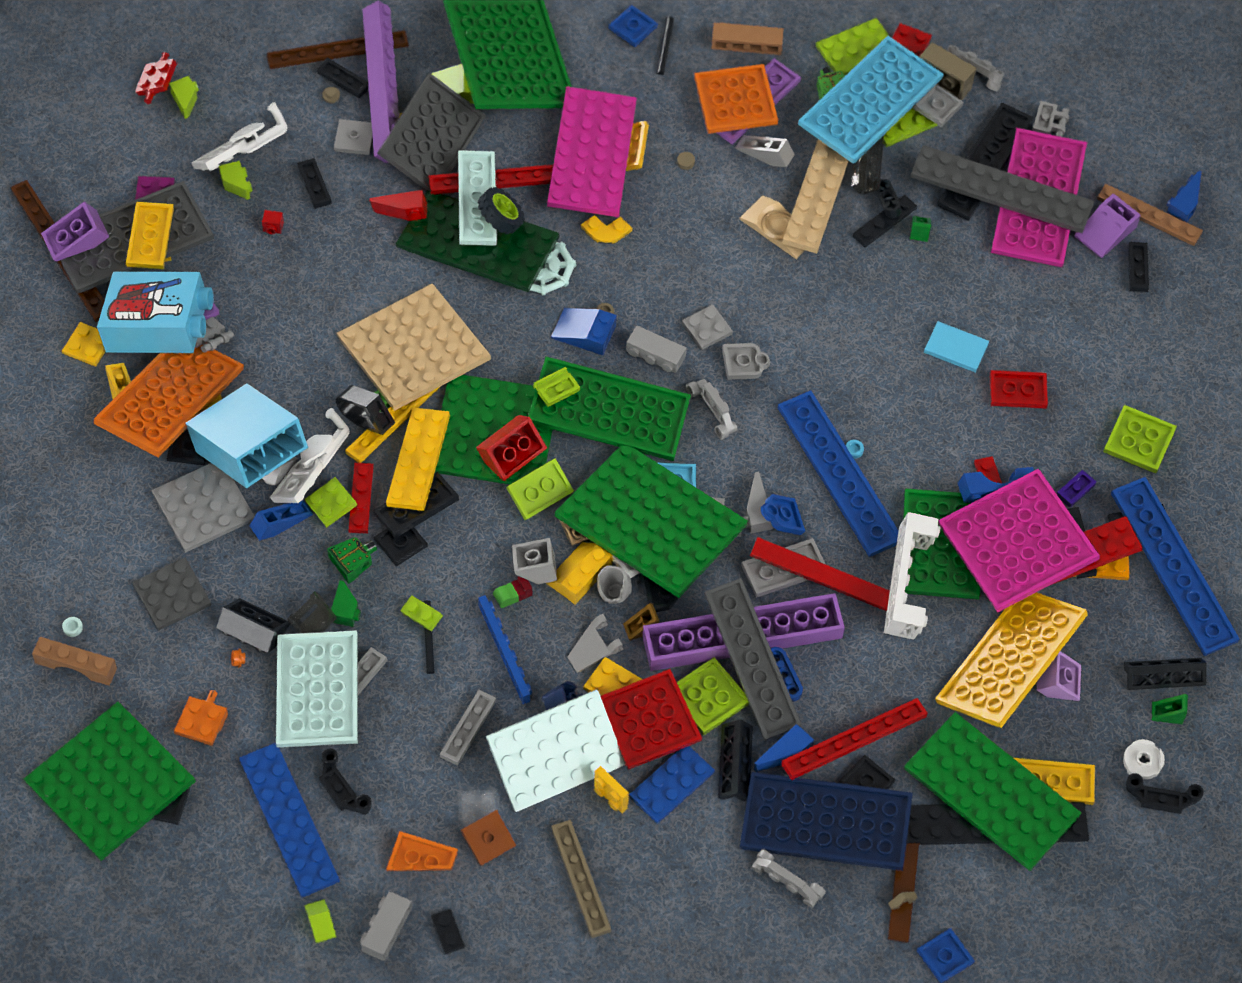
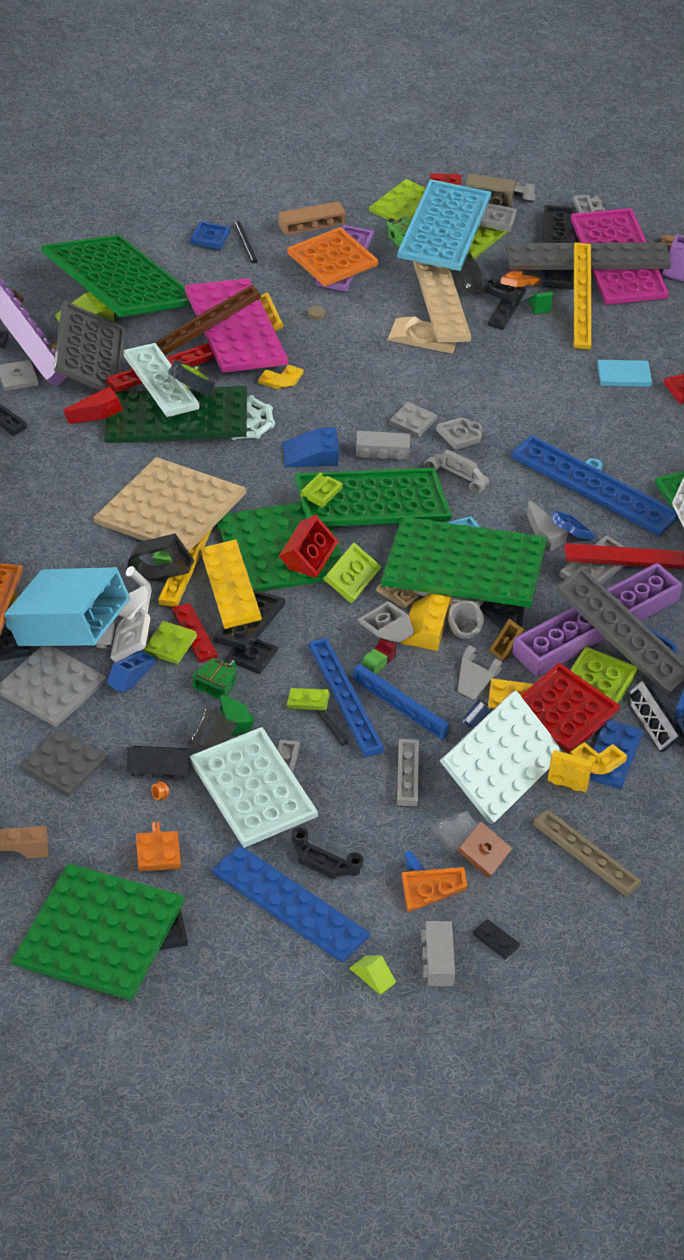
camera: 25 degrees left, 15 degrees down
(417, 825) = (412, 862): none -> blue plate
(458, 623) = (346, 697): none -> blue plate
(556, 142) = (208, 319): none -> reddish brown plate
(646, 792) = (602, 762): none -> yellow plate
(768, 150) = (381, 285): light grey slope -> none
(912, 191) = (517, 279): none -> orange wing
(963, 238) = (582, 296): none -> yellow plate

